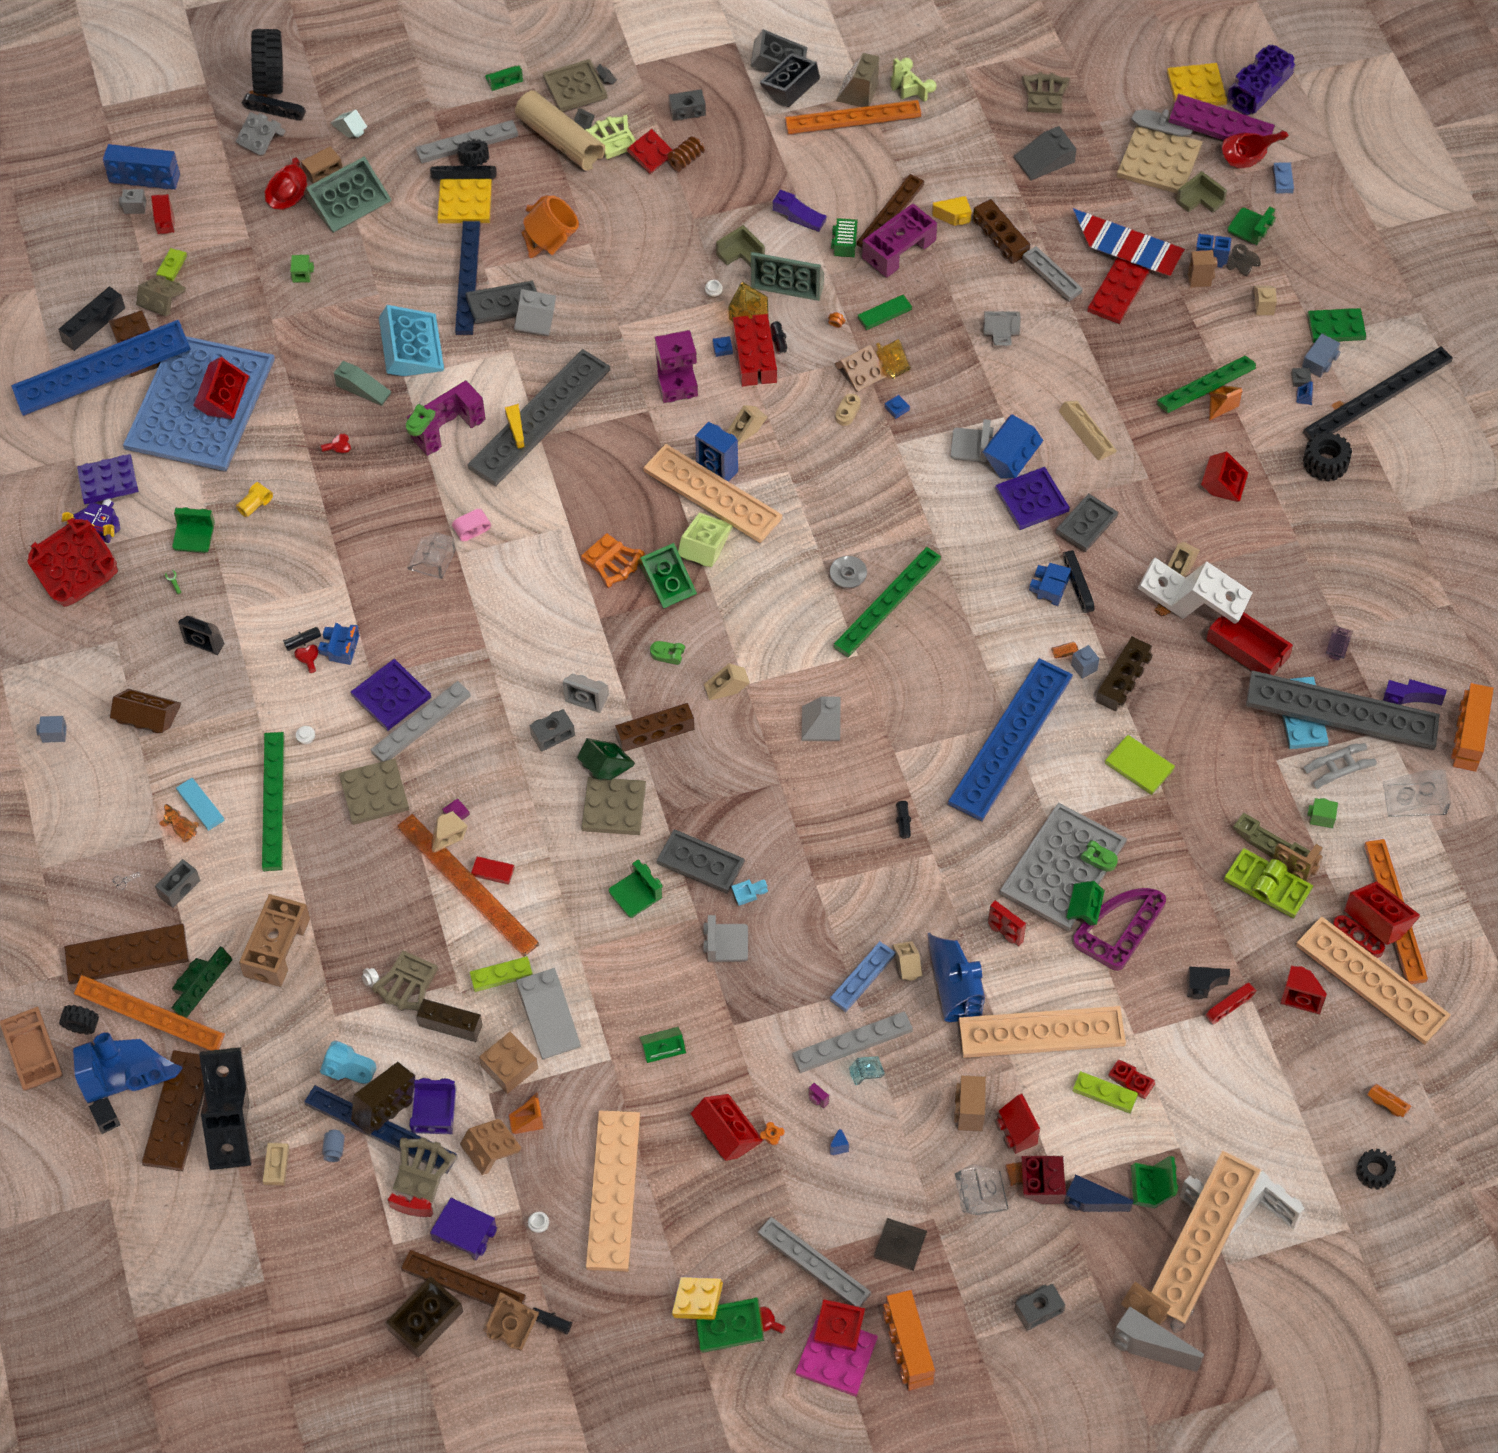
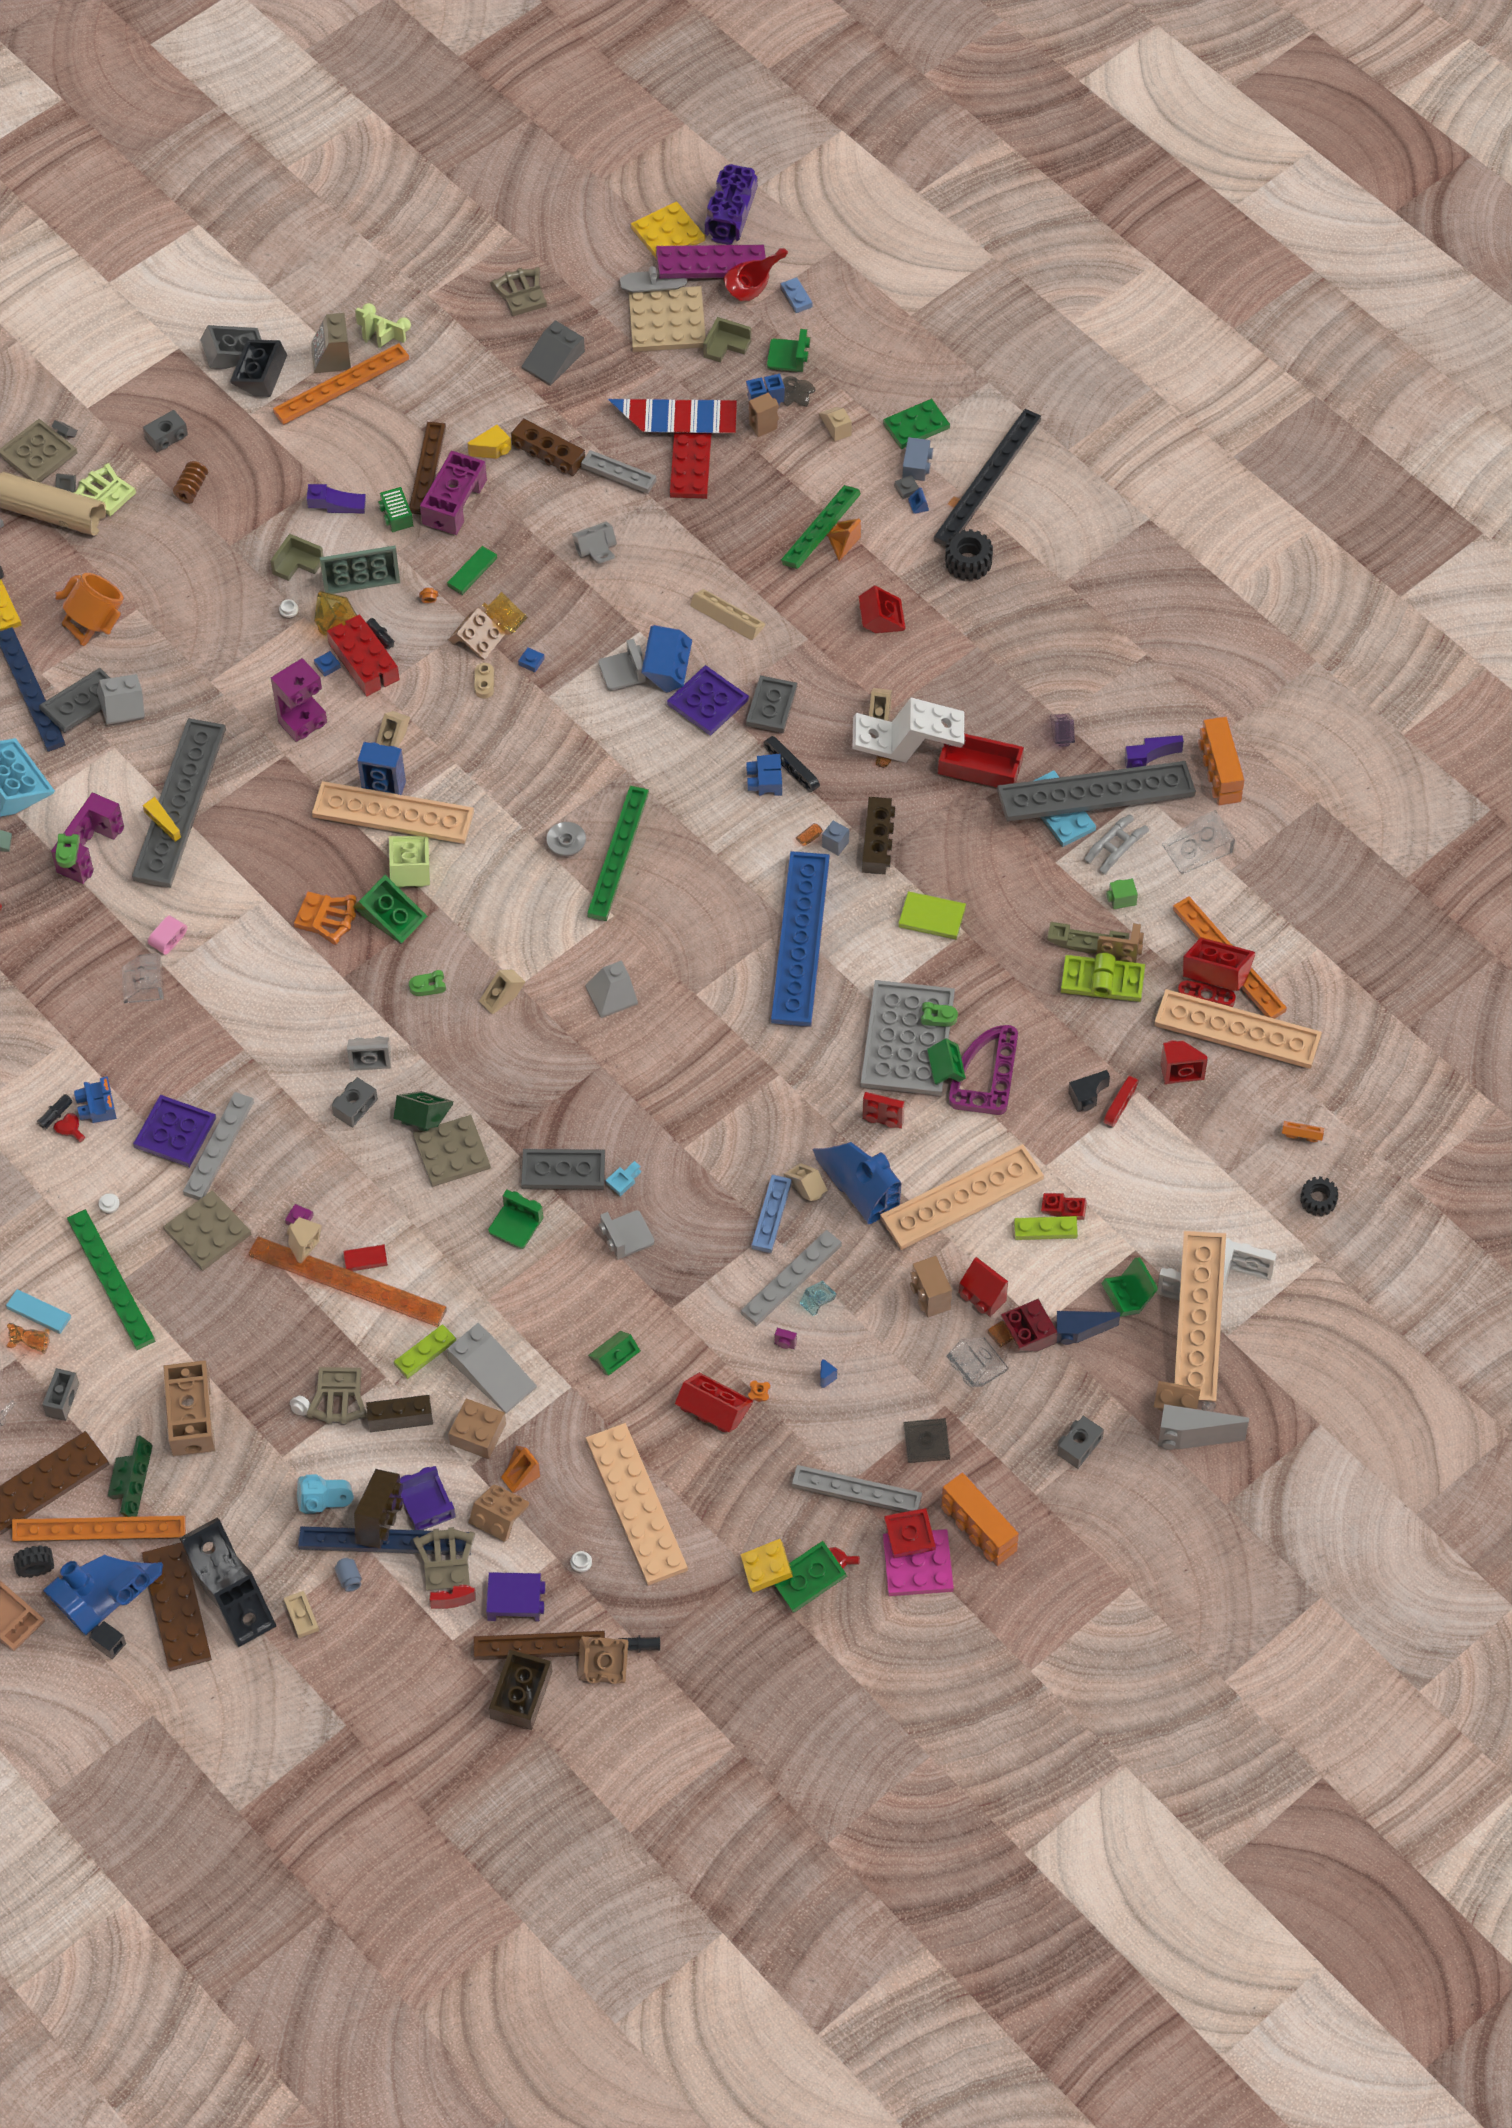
camera: 25 degrees left, 0 degrees up
(650, 151) = (152, 492): red plate -> none
(655, 727) = (454, 1060): reddish brown brick -> none
(903, 819) = (736, 1053): black axle -> none

